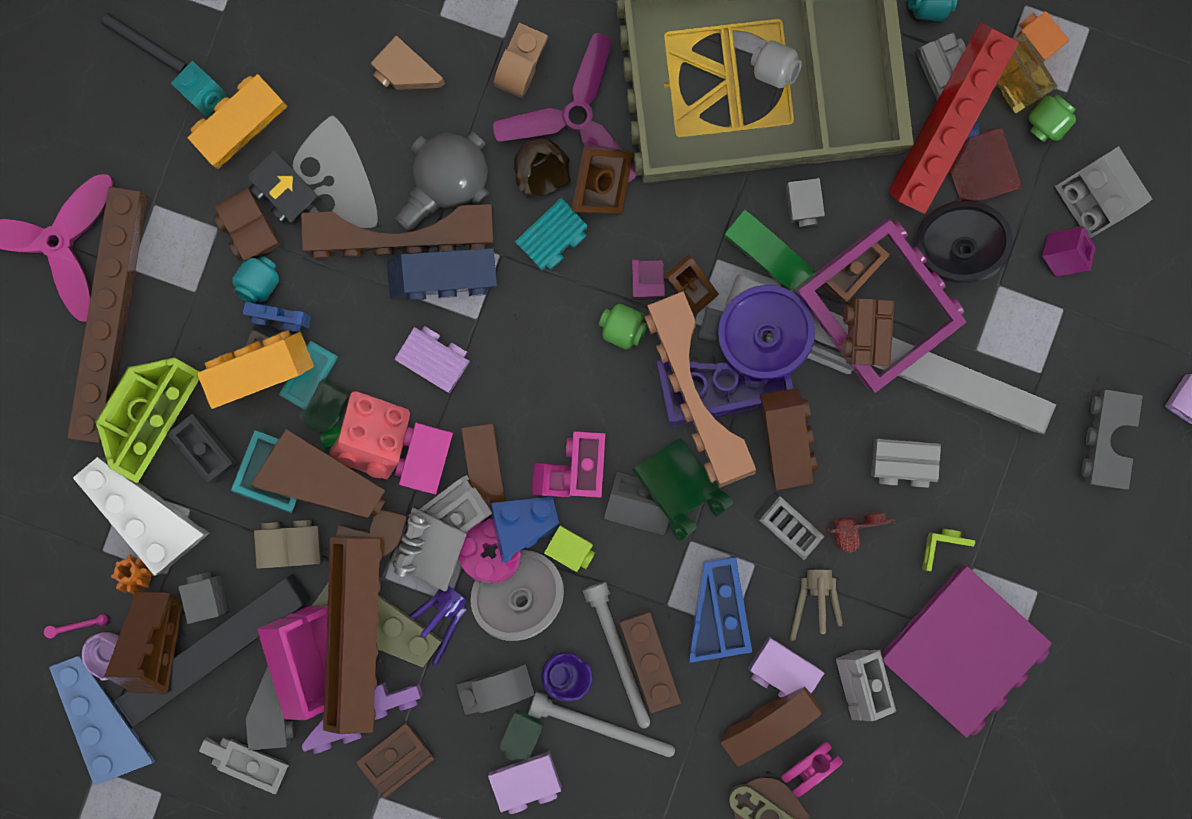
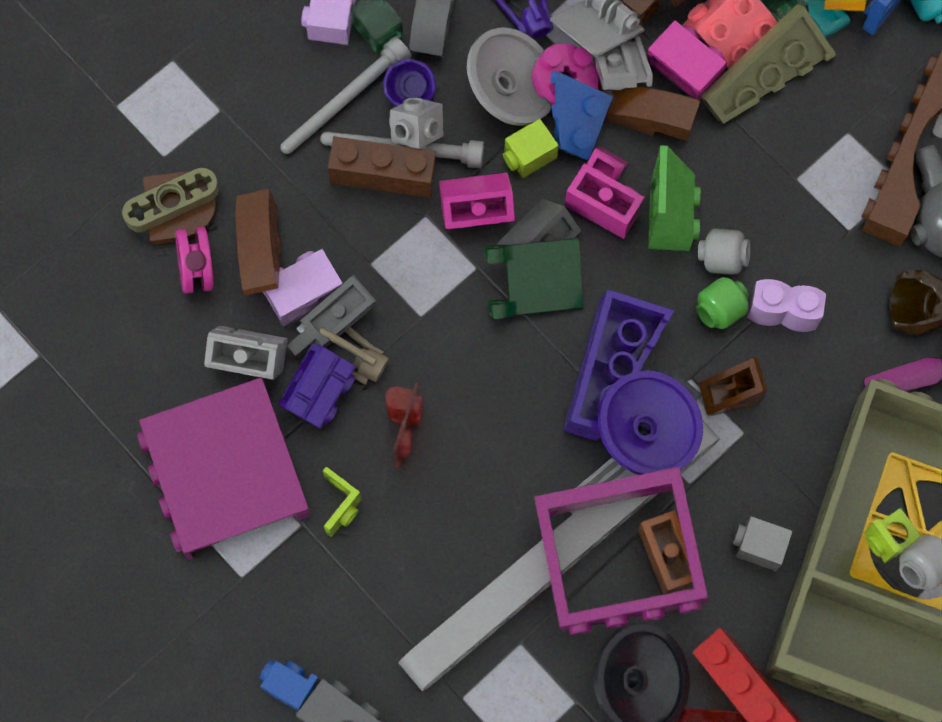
camera: 110 degrees right, 15 degrees down
(376, 382) = (776, 58): none -> olive wing
(432, 359) = (778, 115): lavender brick -> none
(441, 274) = (858, 160): dark blue wedge -> none
(552, 235) = (847, 282): teal brick -> none
(563, 405) = (672, 204): none -> bright green slope
(577, 346) = (724, 251): none -> light grey head
(596, 266) = (795, 307): none -> lavender brick
(602, 179) = (882, 348): reddish brown slope -> none
(602, 651) = (416, 123): none -> light grey brick
(641, 568) = (476, 200): none -> dark pink brick
(648, 279) = (761, 345): magenta panel -> none
(720, 613) = (393, 252): blue wedge -> none
(725, 451) = (697, 338): nougat arch -> none
(768, 251) = (732, 478): green slope -> none
(770, 507) = (449, 347): flat silver slope -> none
(778, 102) = (881, 540): none -> lime bracket
(788, 438) = (531, 395): reddish brown brick -> none
(797, 632) = (335, 314): none -> dark grey hinge
(864, 613) = (317, 386): none -> dark purple brick
(868, 332) = (601, 512): reddish brown brick -> none
(906, 461) = (445, 507): light grey brick -> none
(1104, 509) = (288, 683): none -> blue brick

